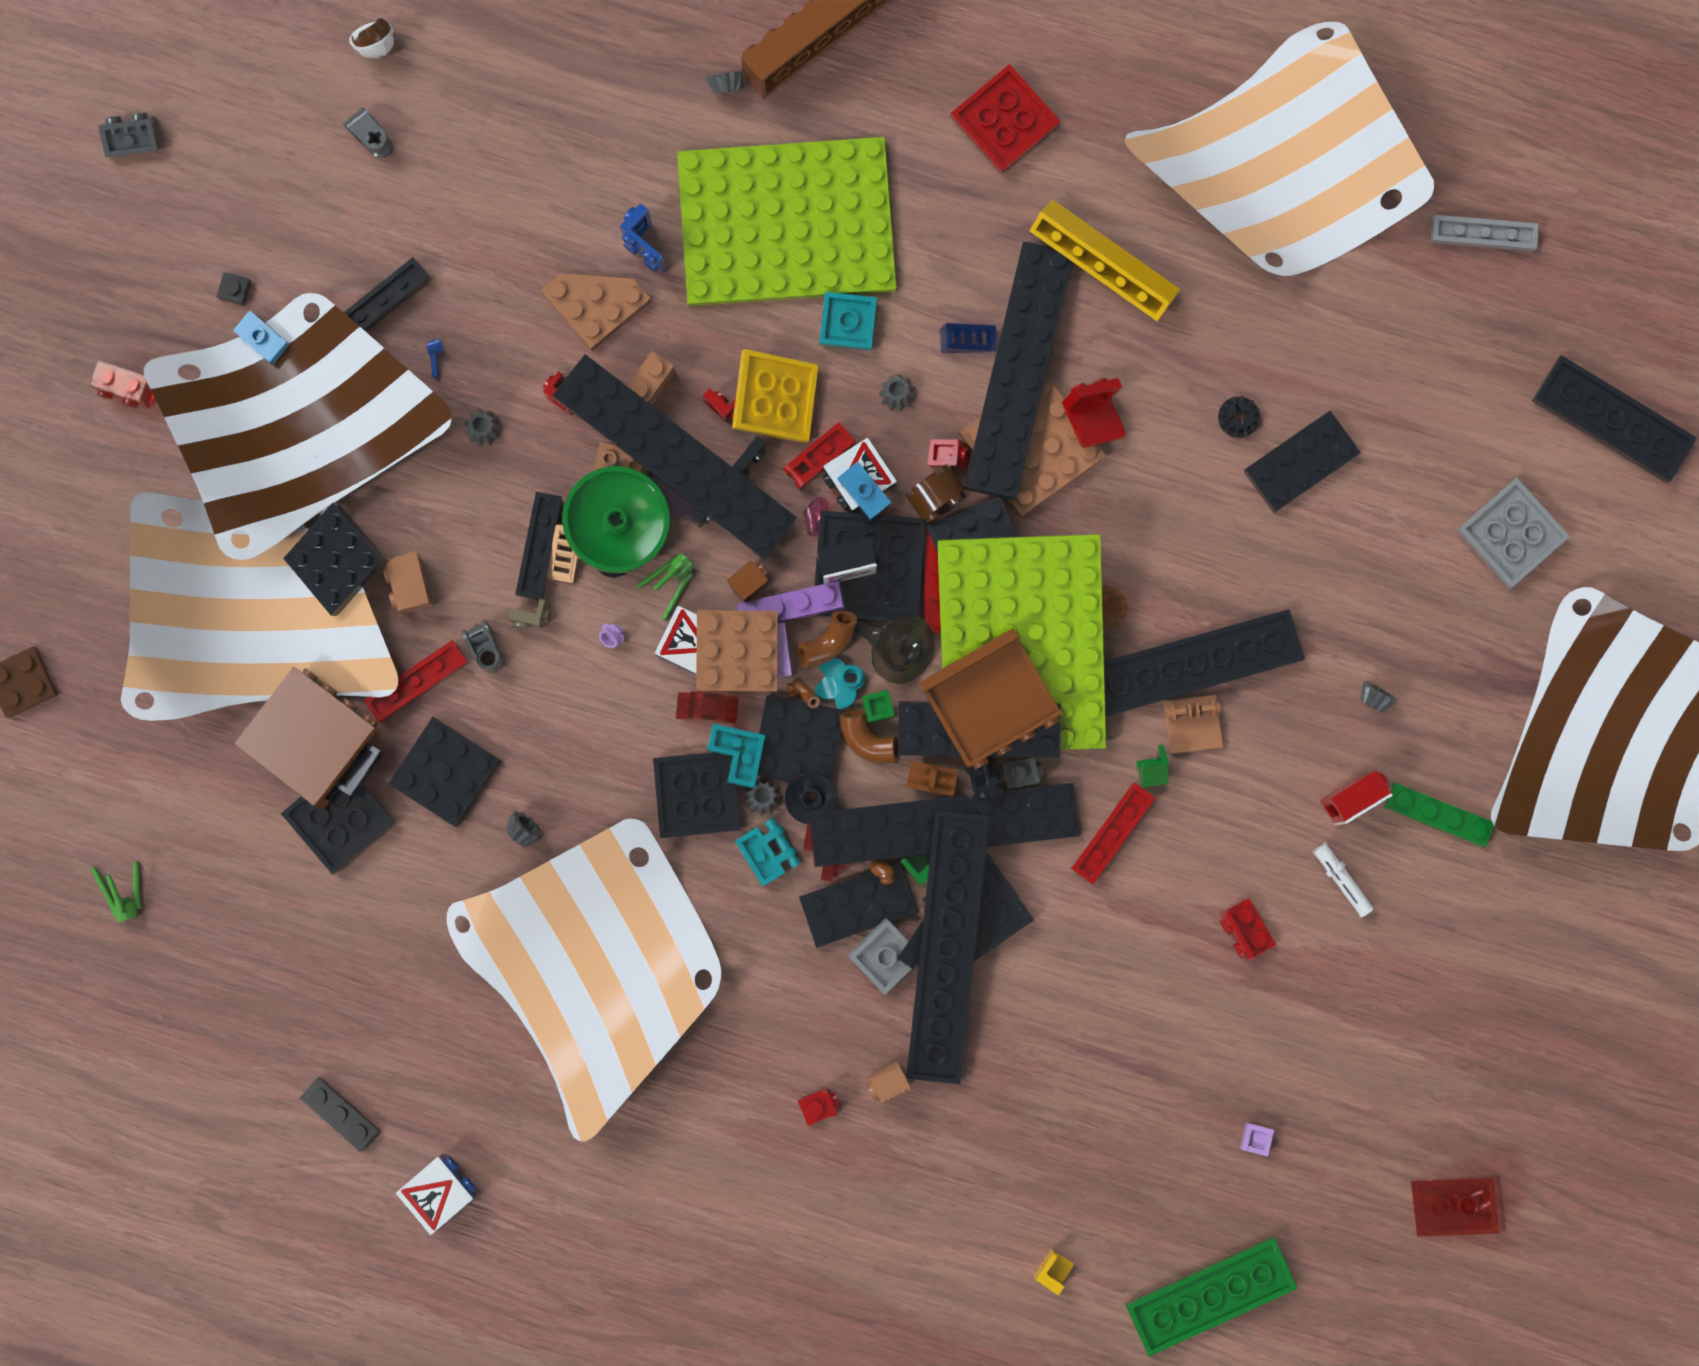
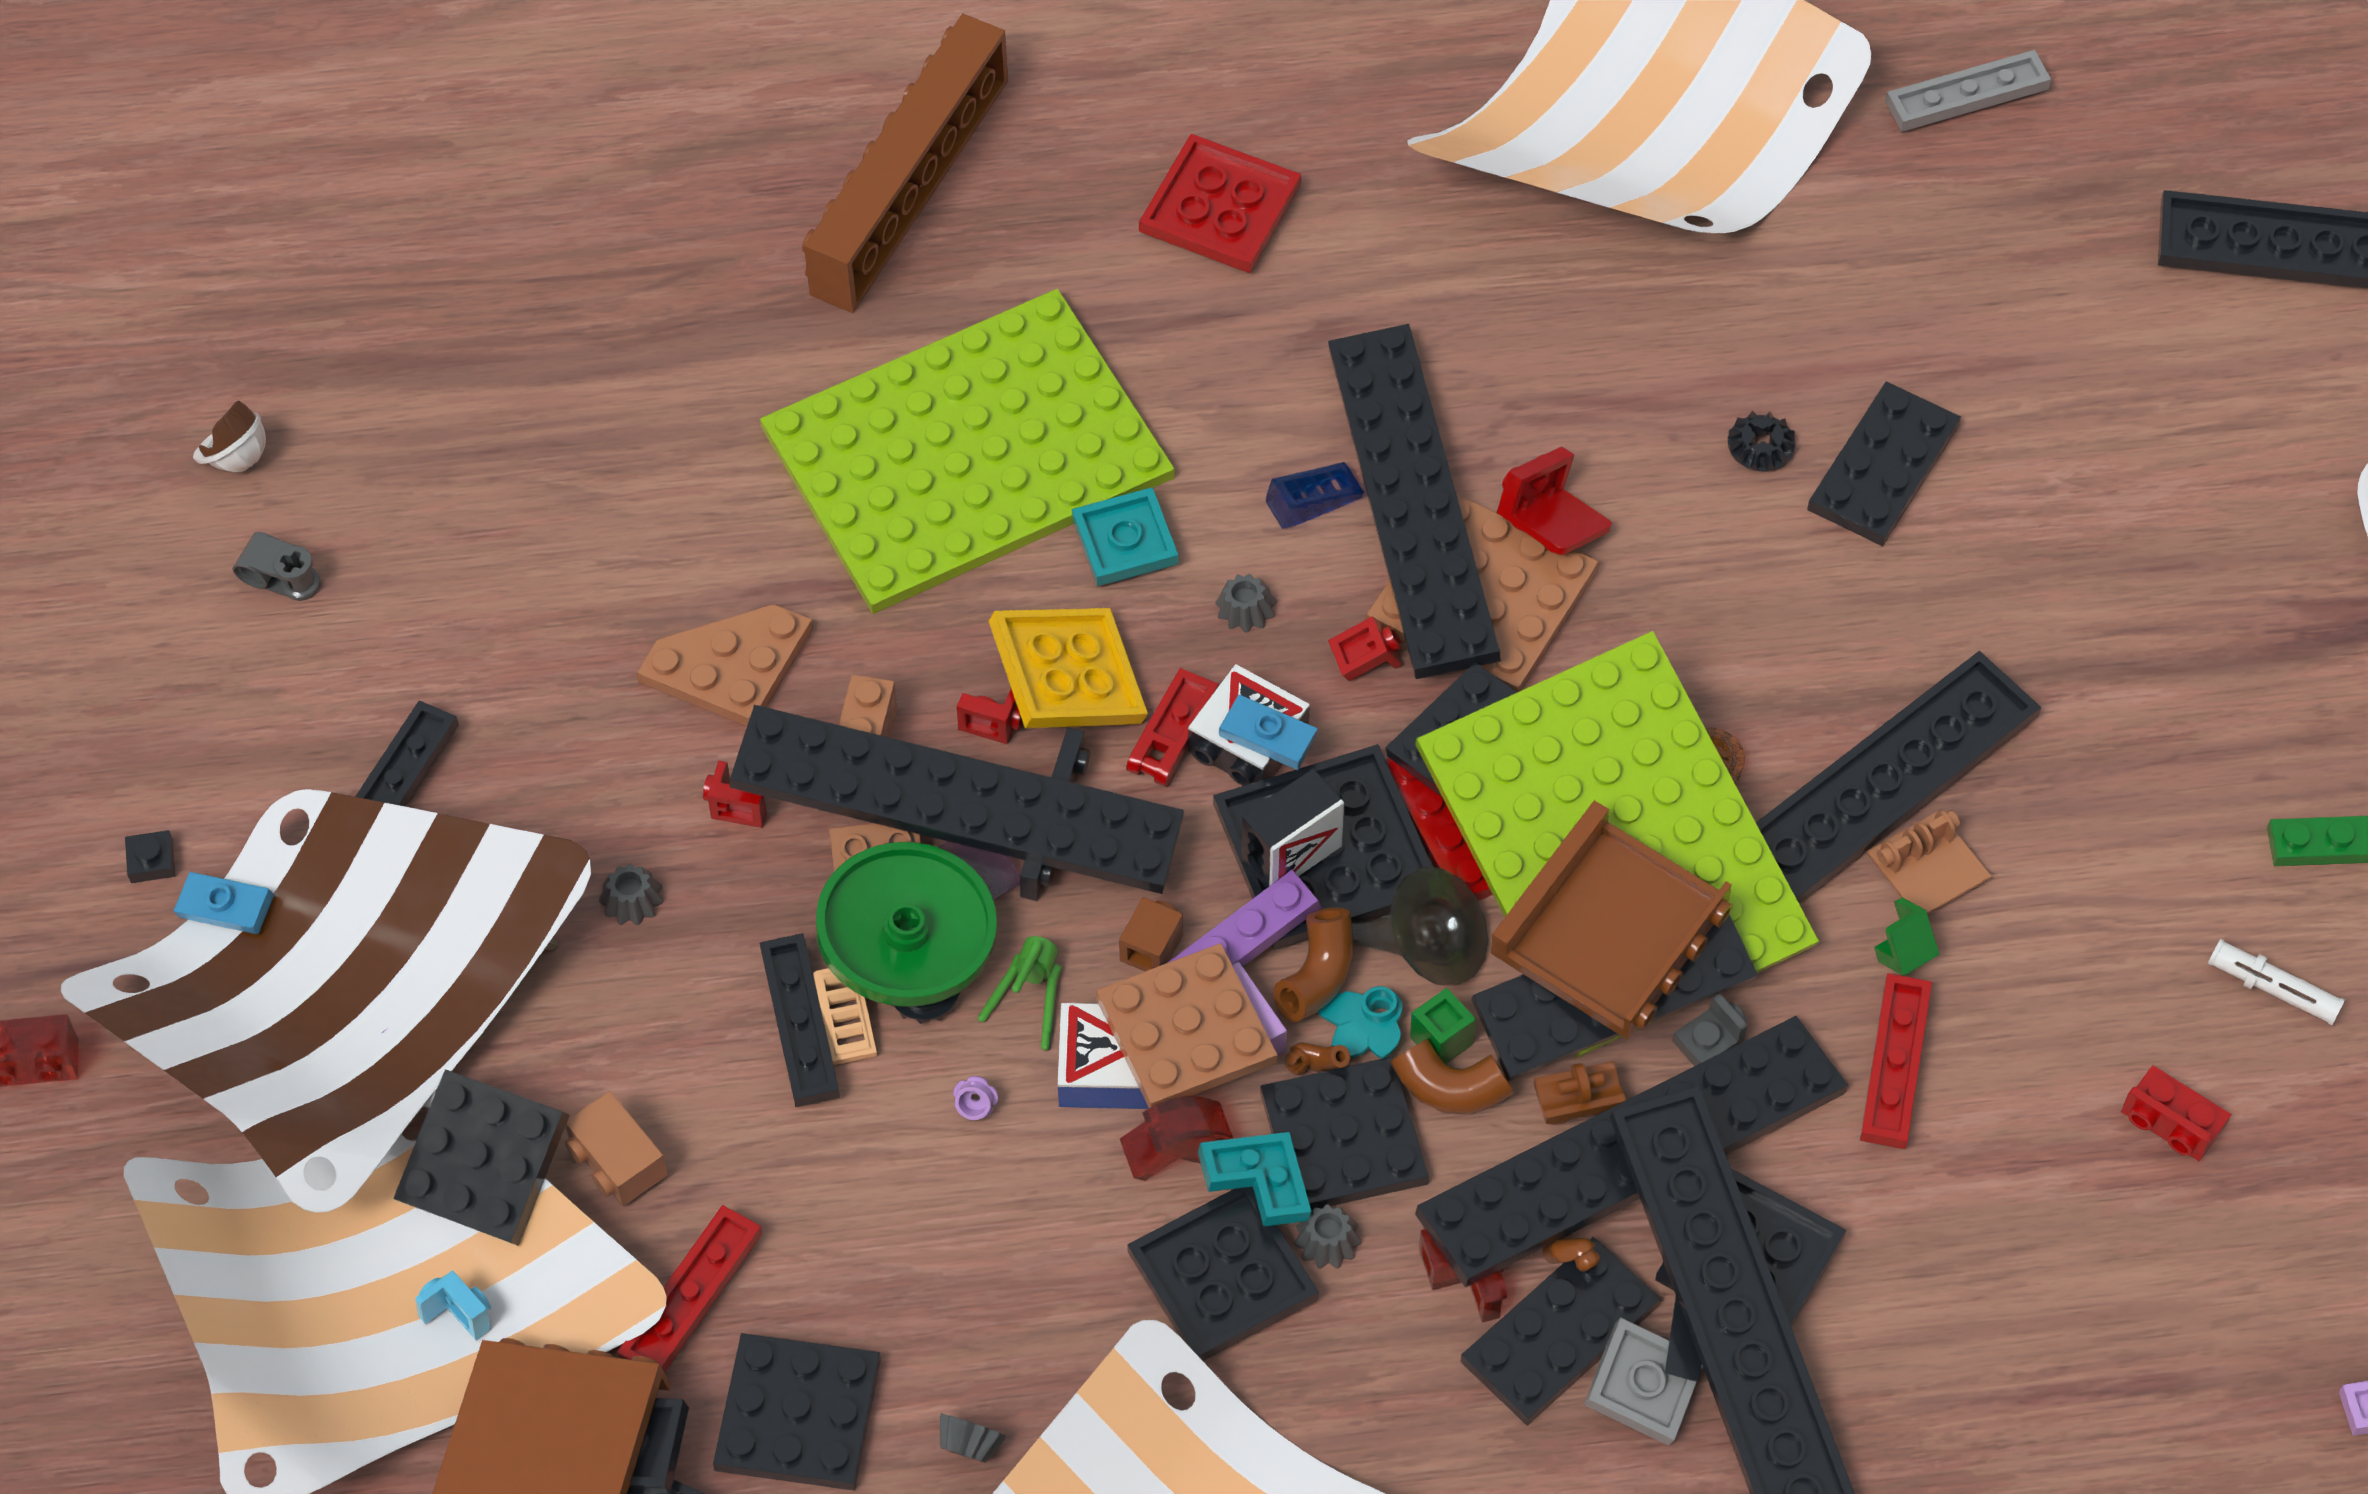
camera: 20 degrees left, 25 degrees down
(297, 638) = (465, 1304): none -> medium azure bracket
(434, 347) = (507, 812): blue hand -> none
(481, 643) = (773, 1192): dark grey piece -> none
(526, 619) = (831, 1126): dark tan bracket -> none
(635, 225) = (766, 547): blue bracket -> none
(725, 82) = (789, 303): dark grey piece -> none
(761, 857) = (1372, 1321): teal plate -> none
(800, 805) = (1398, 1175): black dish -> none
(812, 515) = (1203, 809): clear pink arm -> none
(917, 867) = (1625, 1234): green panel -> none
(935, 493) = (1376, 699): reddish brown brick -> none
(985, 779) = (1659, 1051): black hips -> none
(1104, 260) = (1459, 314): yellow brick -> none
(1356, 797) = (2226, 852): red piece -> none
(1377, 697) = (2174, 714): dark grey piece -> none
(1512, 533) = (2235, 433): light grey plate -> none

